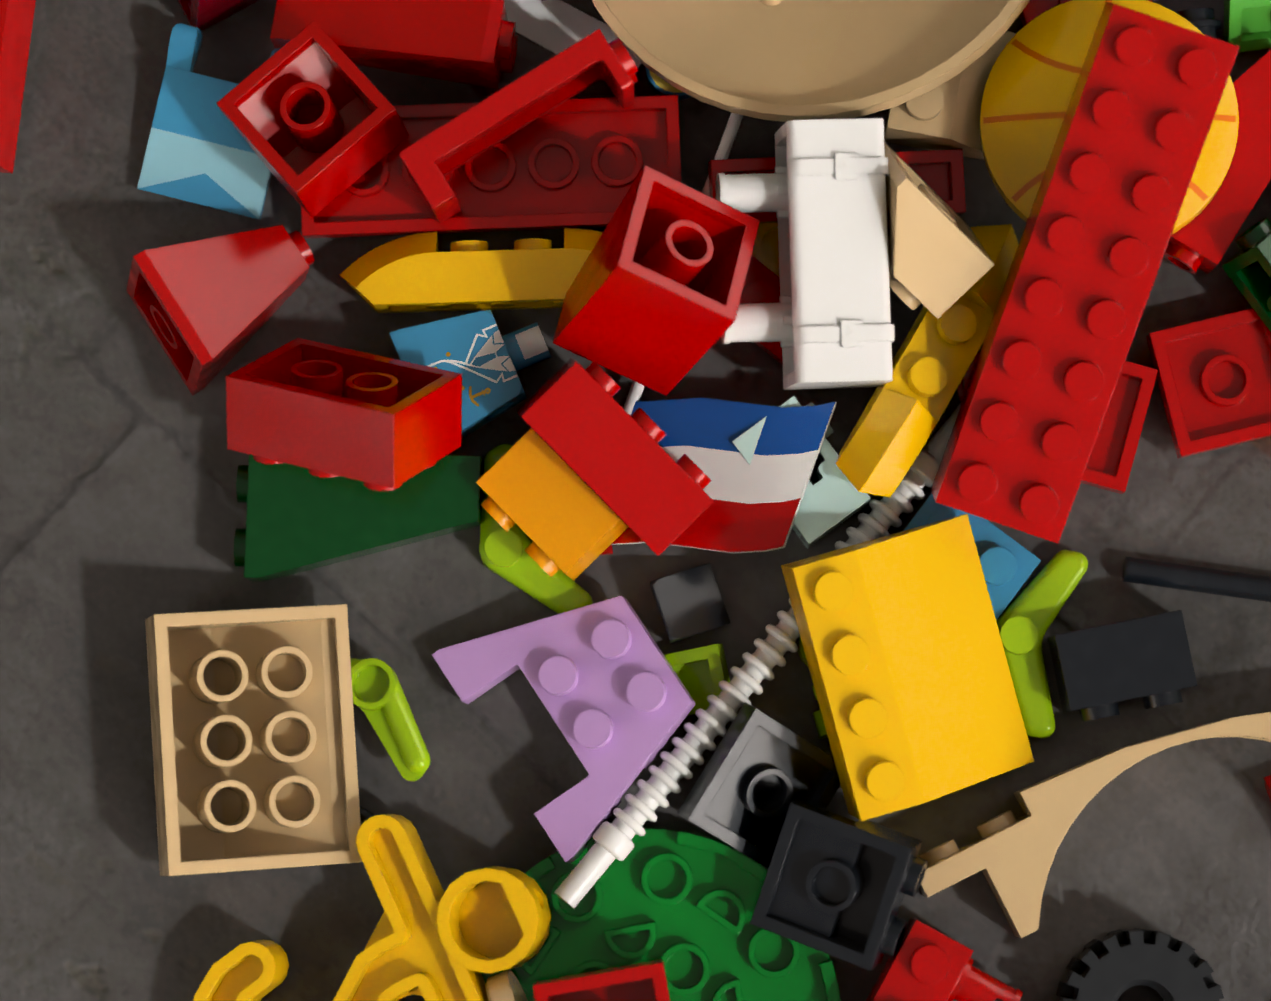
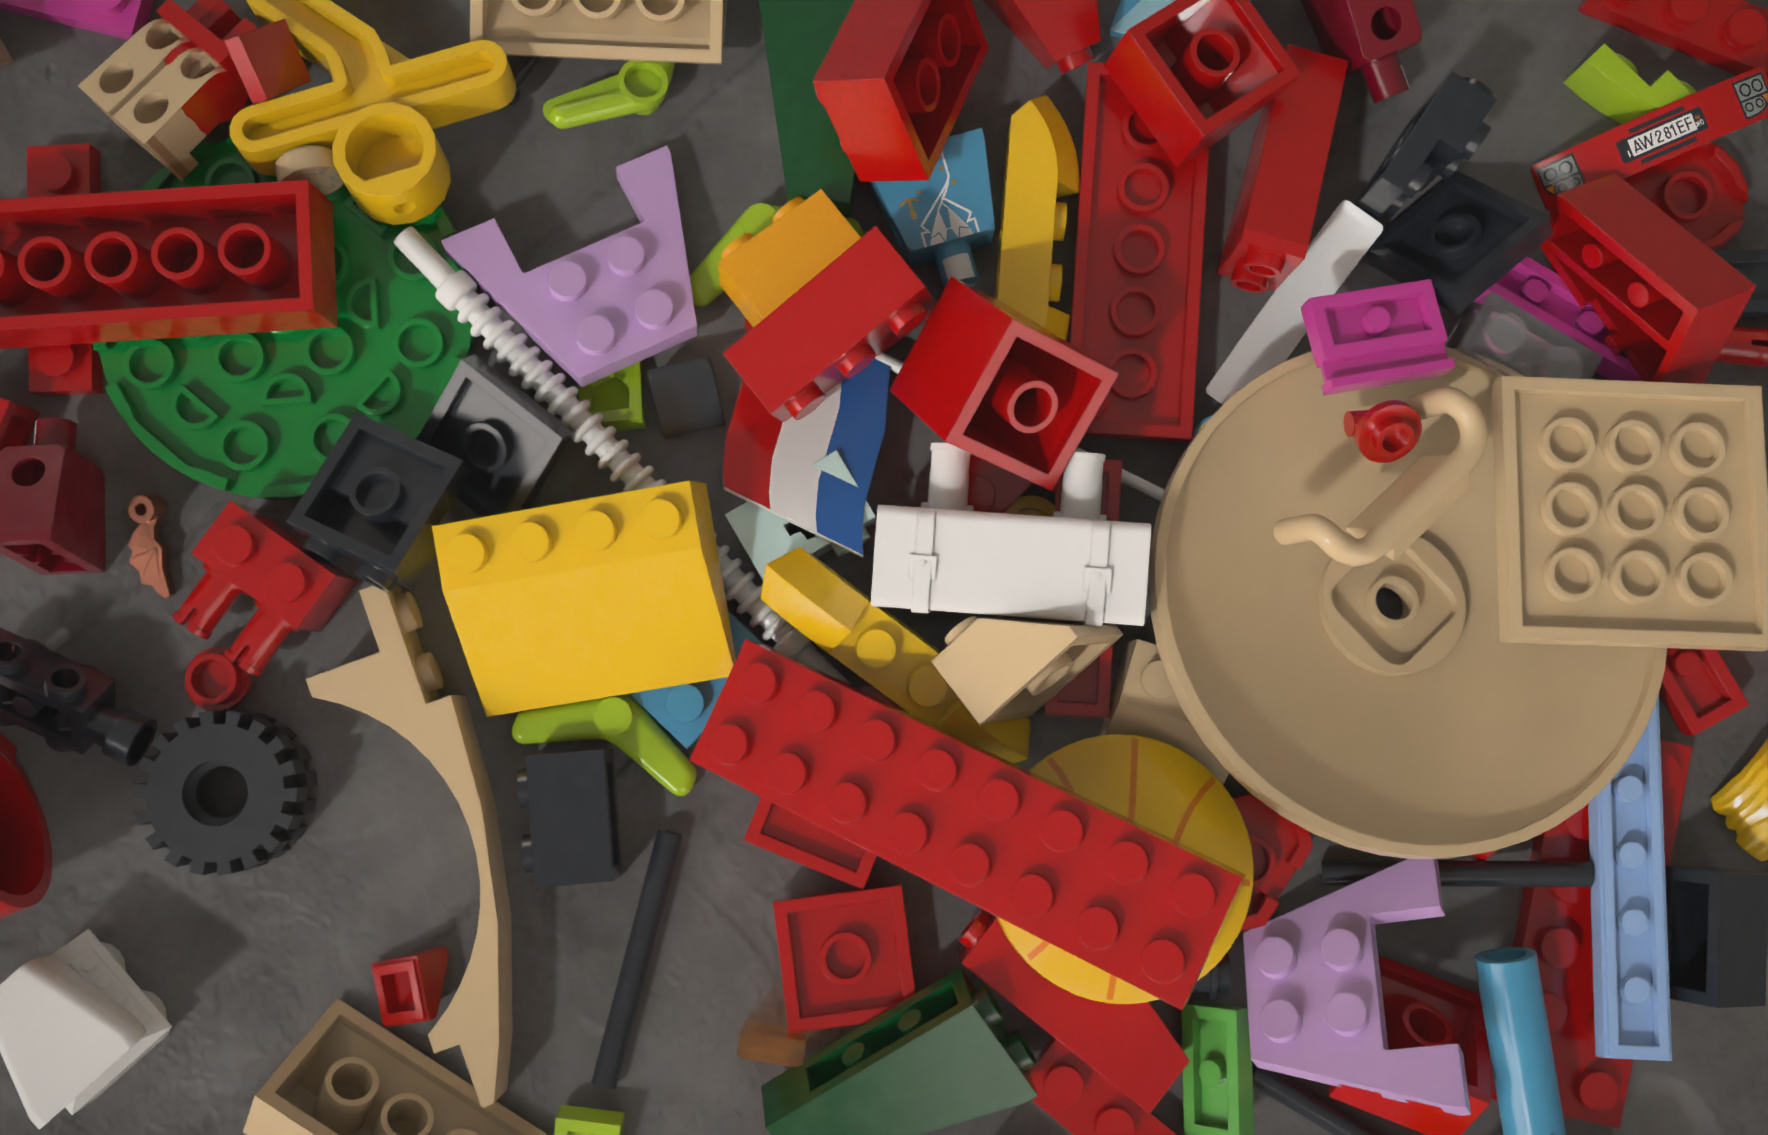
camera: 90 degrees right, 0 degrees up
(513, 109) = (1149, 176): red panel -> none

